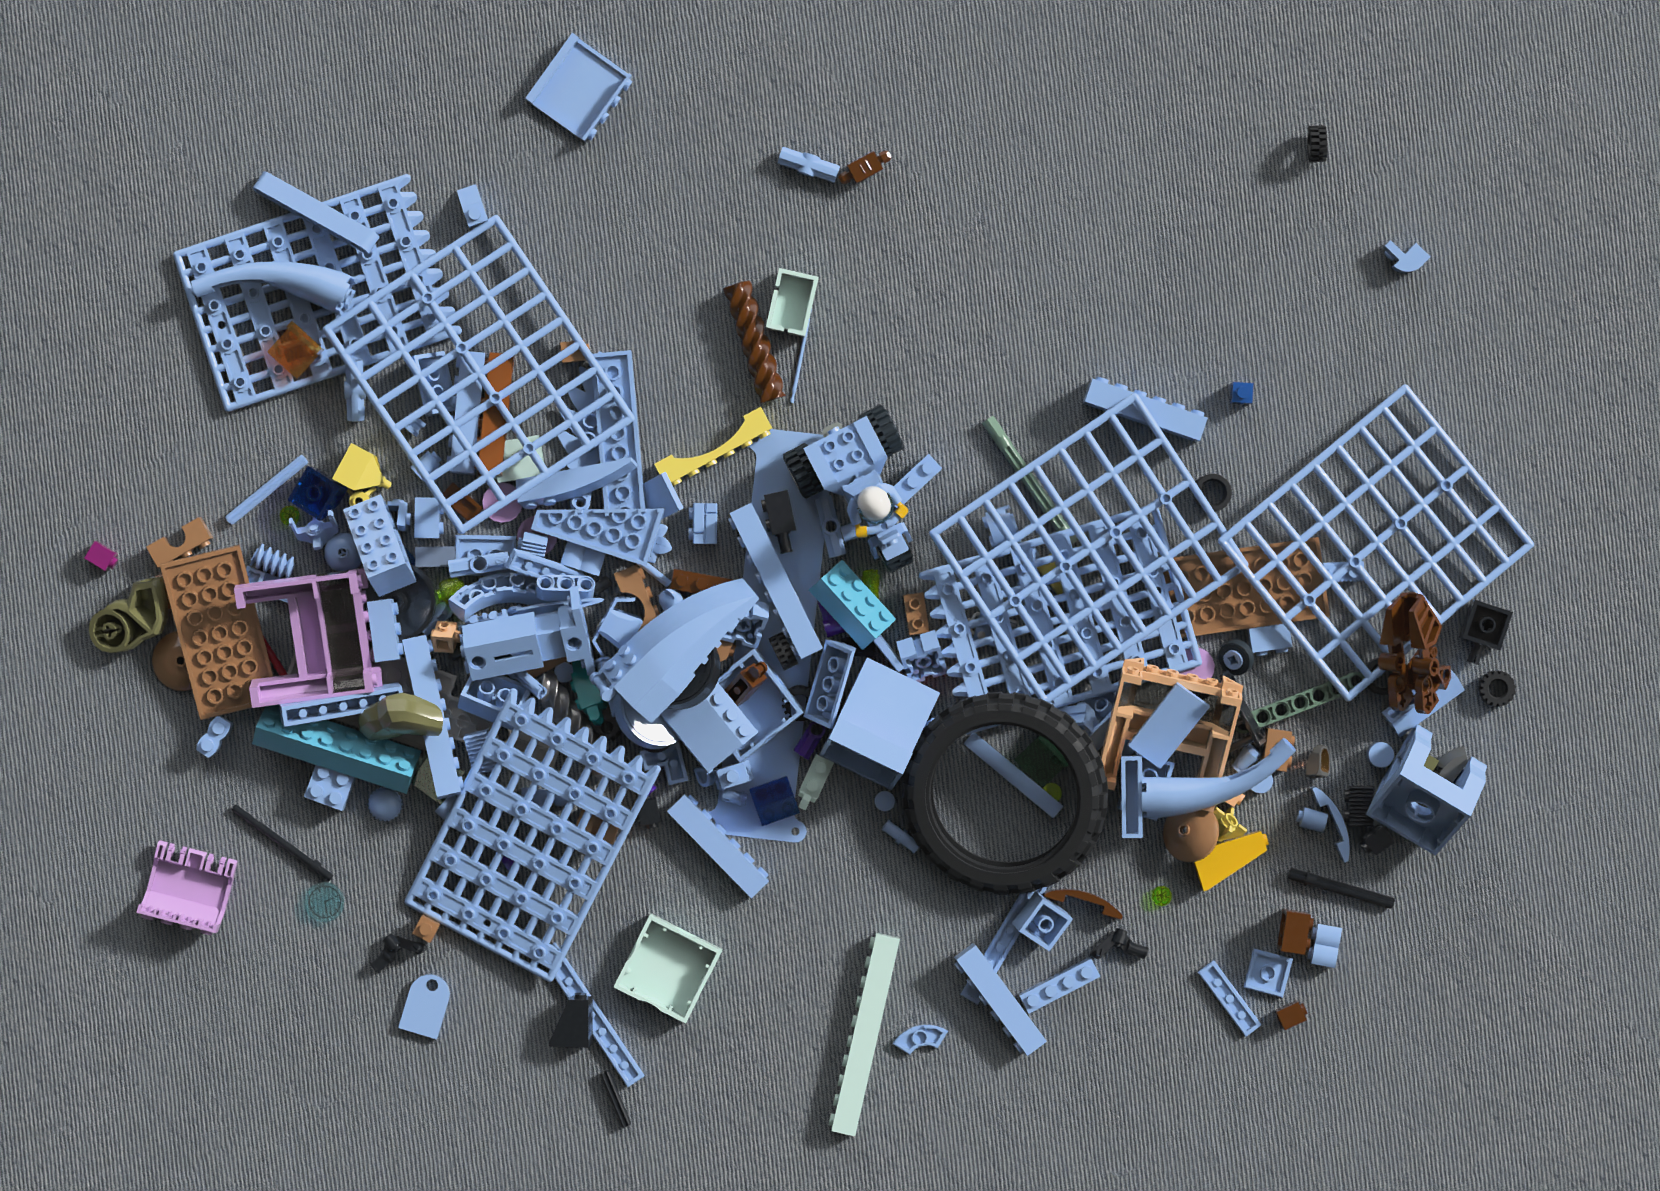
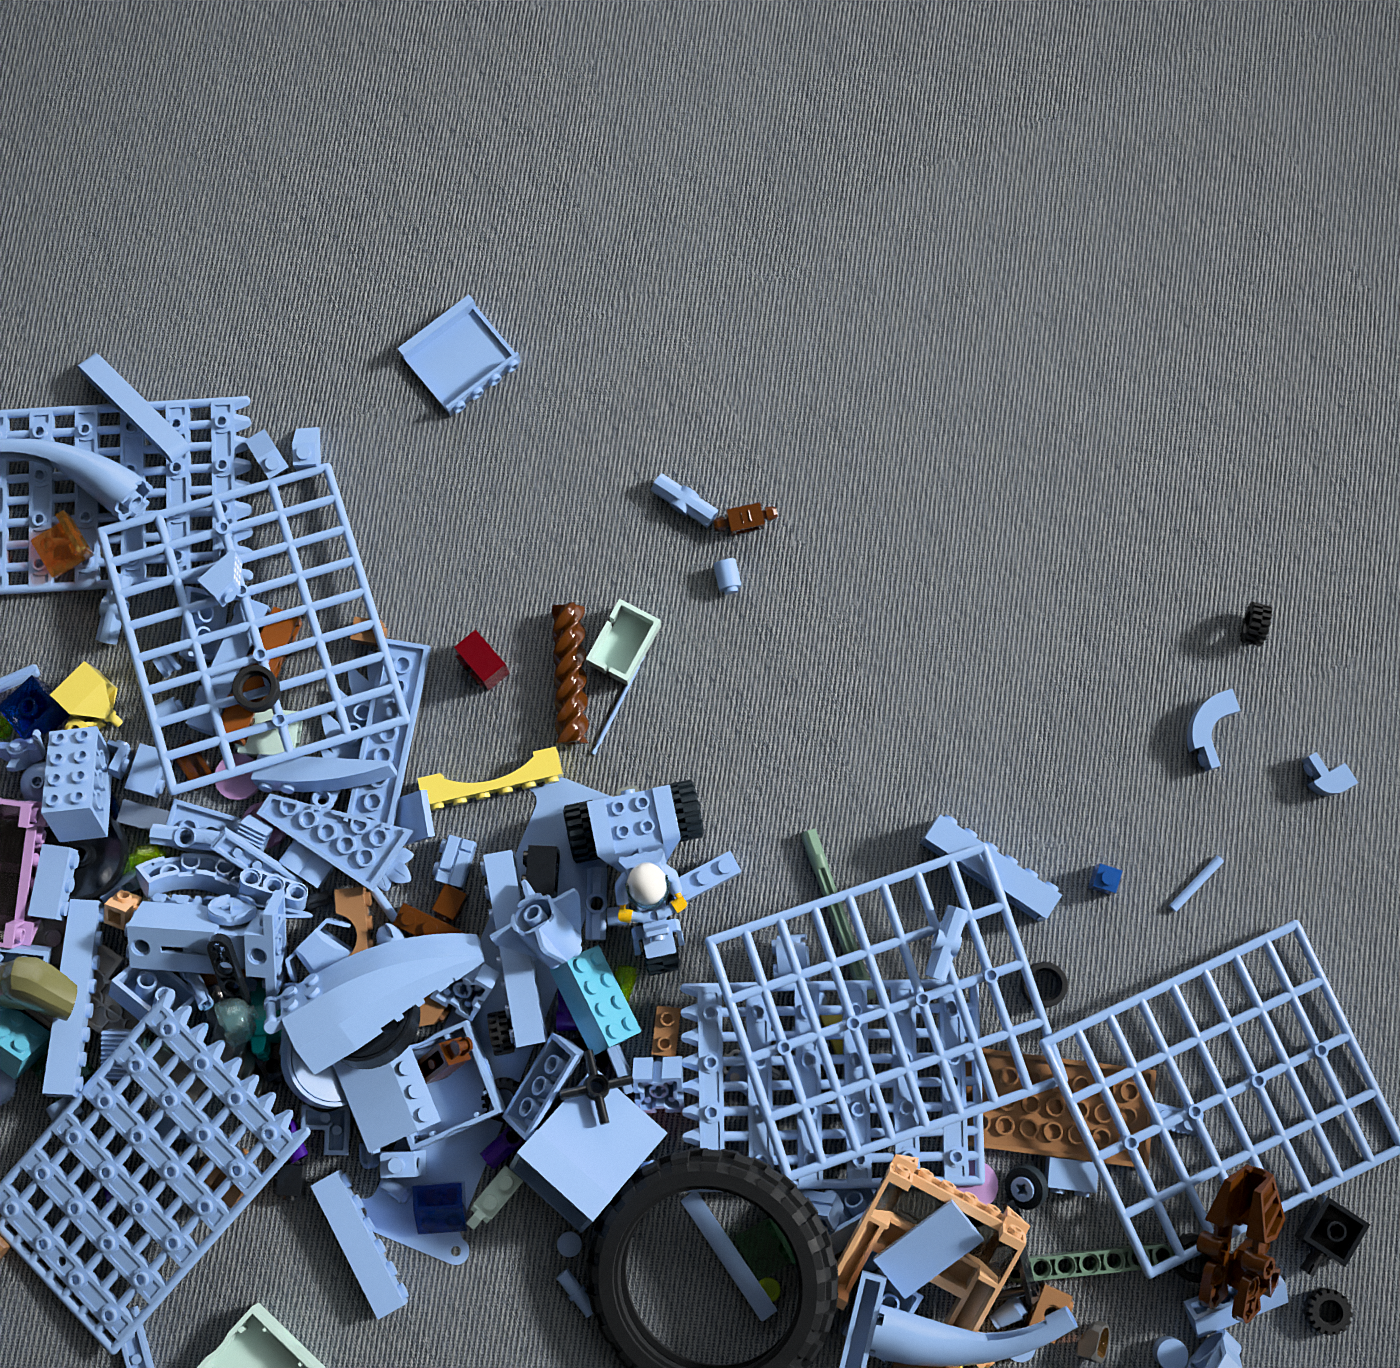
camera: 15 degrees right, 10 degrees down
(441, 221) = (267, 454): none -> light blue slope
(446, 343) = (223, 578): none -> light blue slope
(500, 413) = (246, 674): none -> black tyre
(539, 613) = (231, 910): none -> light blue tile
(552, 666) = (227, 975): none -> black beam
(572, 698) = (237, 1020): none -> clear light blue cylinder
(677, 350) = (484, 662): none -> dark red brick
(710, 559) = (450, 903): none -> reddish brown brick
(798, 558) = (544, 927): none -> light blue brick
(863, 221) = (727, 576): none -> light blue brick
(882, 668) = (585, 1089): none -> black bar
(1123, 483) = (946, 943): none -> light blue piece
(1292, 240) = (1201, 725): none -> light blue arch
(1317, 375) = (1196, 883): none -> light blue bar

